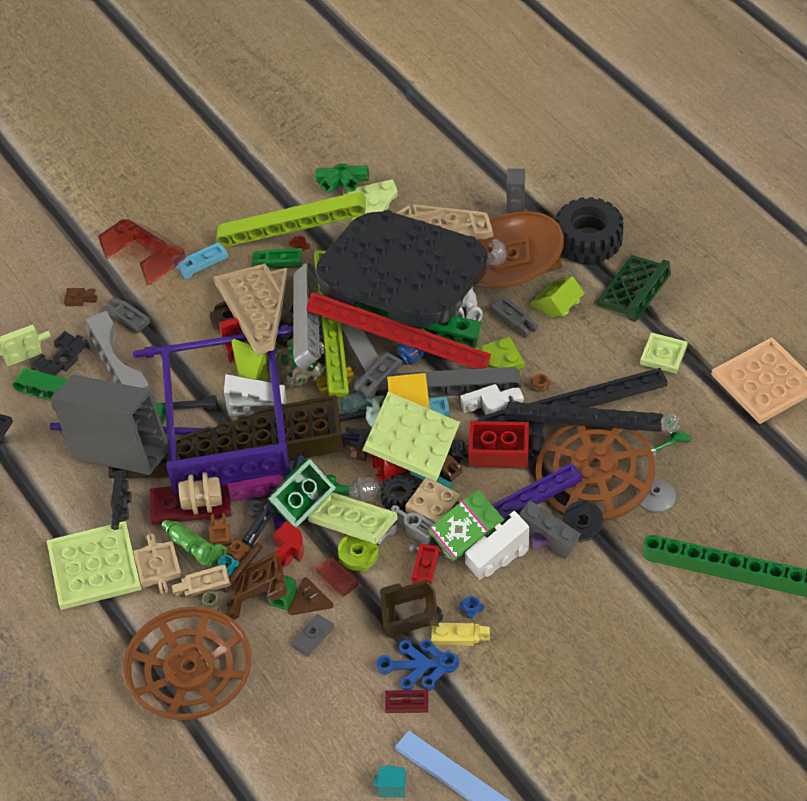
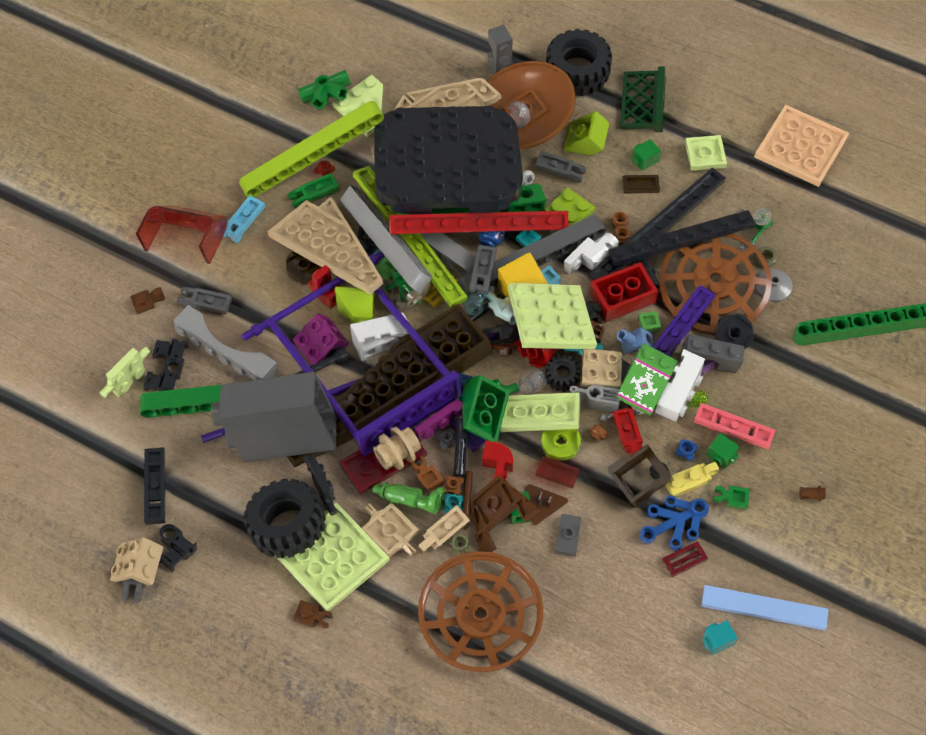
camera: 30 degrees left, 10 degrees up
(45, 605) = (309, 614): none -> reddish brown plate
(69, 513) = (294, 536): none -> black tyre
(202, 378) = (319, 338): none -> magenta bracket
(396, 558) = (597, 432): none -> dark orange plate
(442, 364) = (527, 237): none -> teal plate
(487, 488) = (634, 339): none -> medium blue bracket
(488, 666) = (736, 496): none -> green plate
(503, 621) = (723, 451): none -> green brick
(509, 481) = (649, 321): none -> bright green plate
(514, 566) = (700, 397): none -> clear neon green plate
(528, 602) = (734, 426): none -> coral hinge
(533, 392) = (624, 231): none -> dark orange plate
(567, 694) = (812, 493): none -> reddish brown pin
(583, 359) = (640, 184): none -> dark brown tile
(602, 334) = (646, 154): none -> green brick
(666, 461) = (768, 251): none -> olive piece

